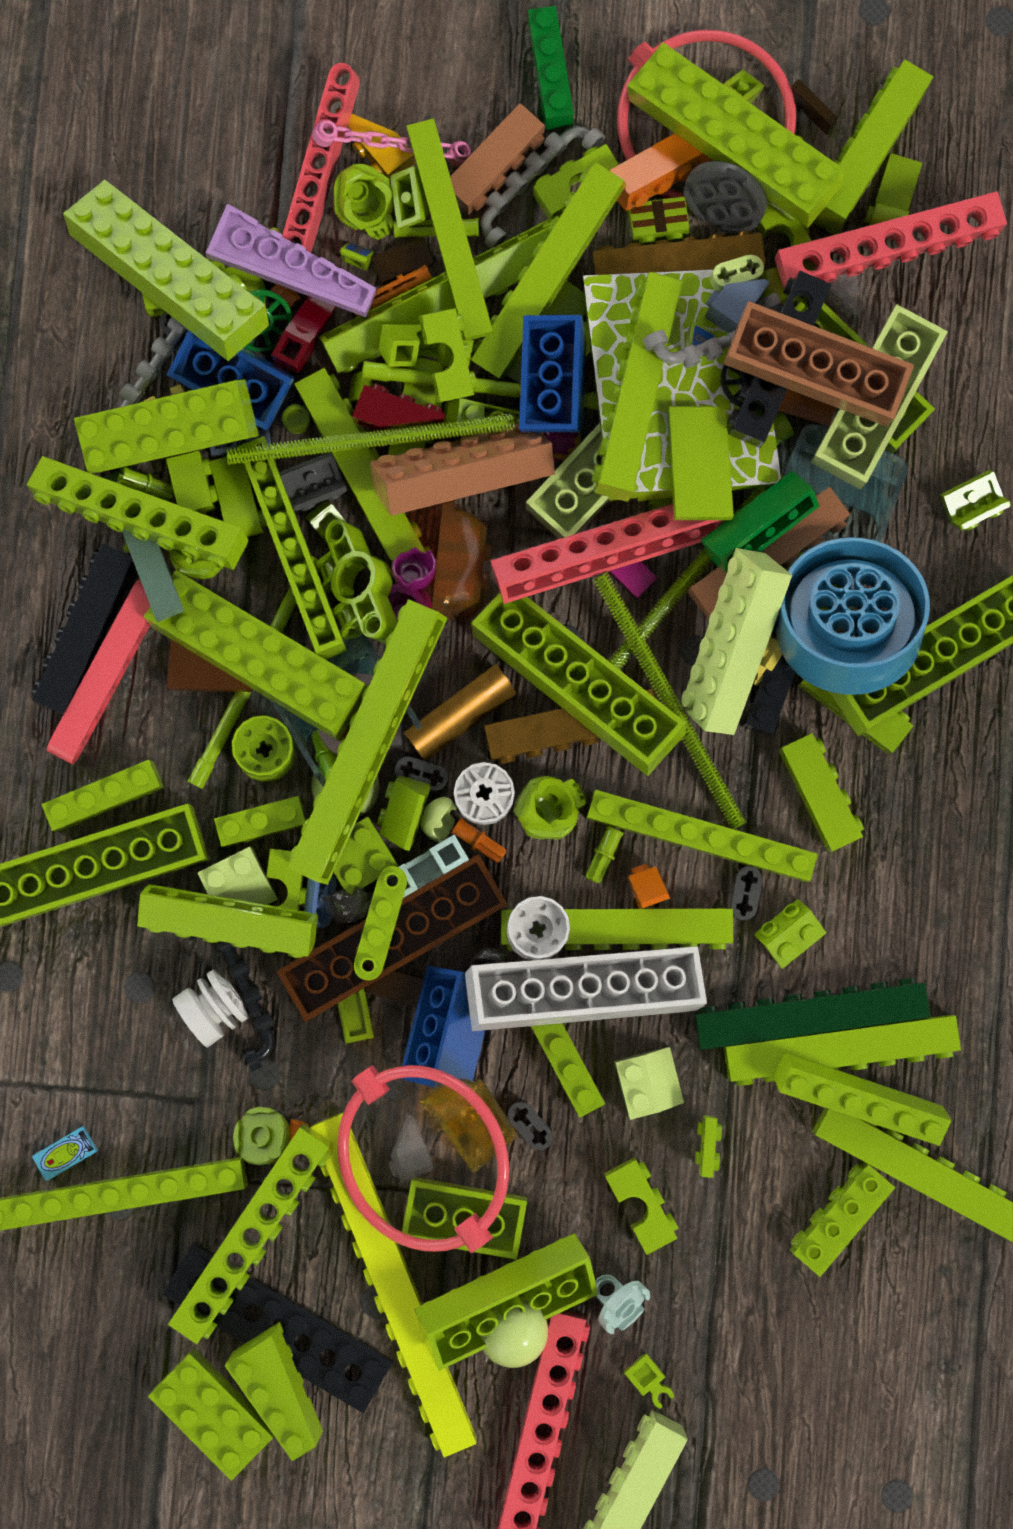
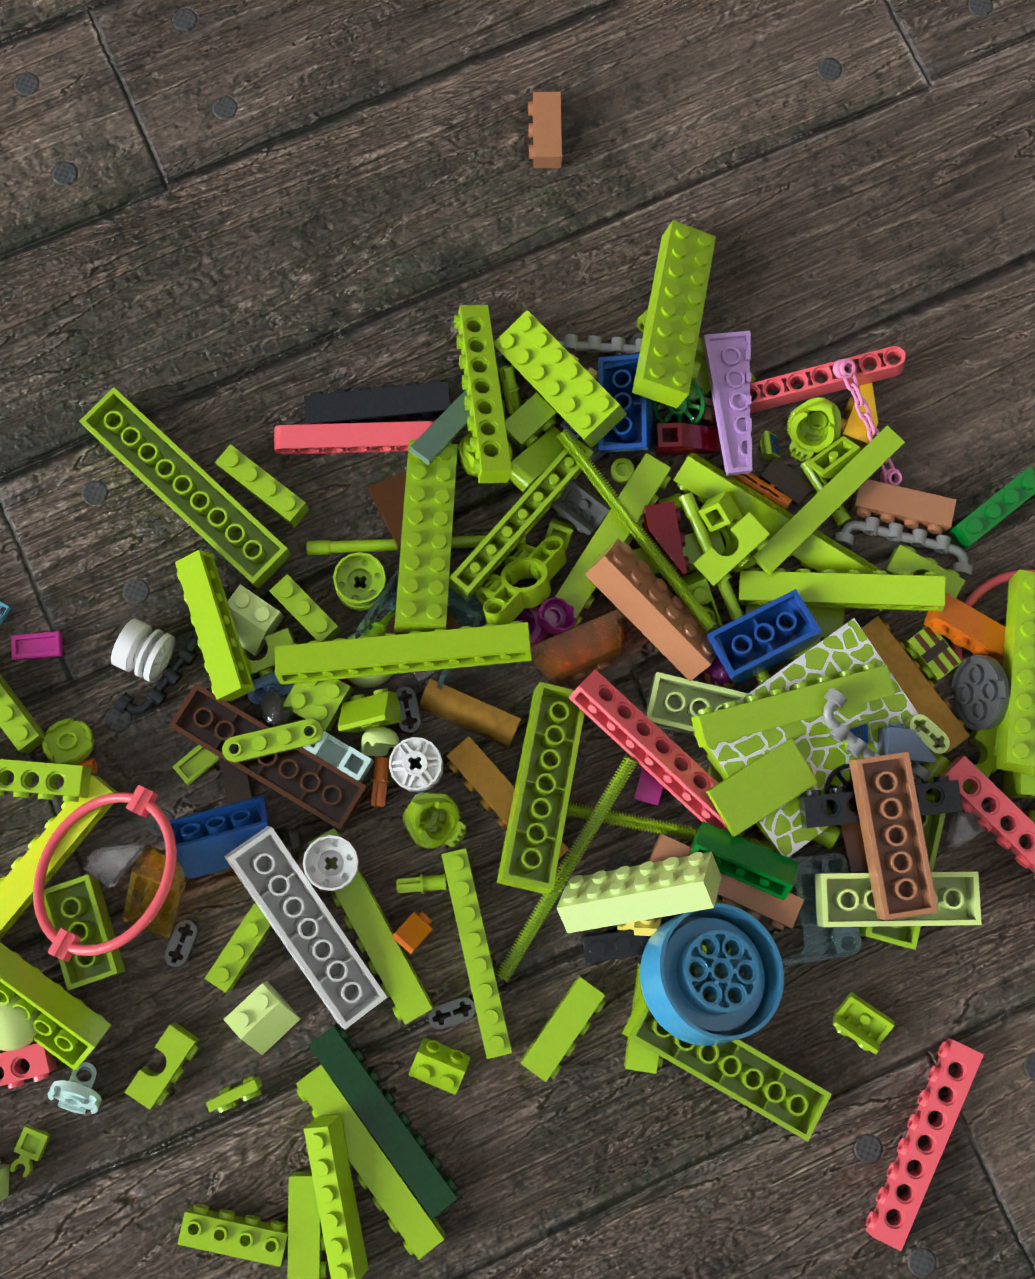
camera: 65 degrees right, 5 degrees down
(140, 1118) = (37, 645): none -> dark pink tile

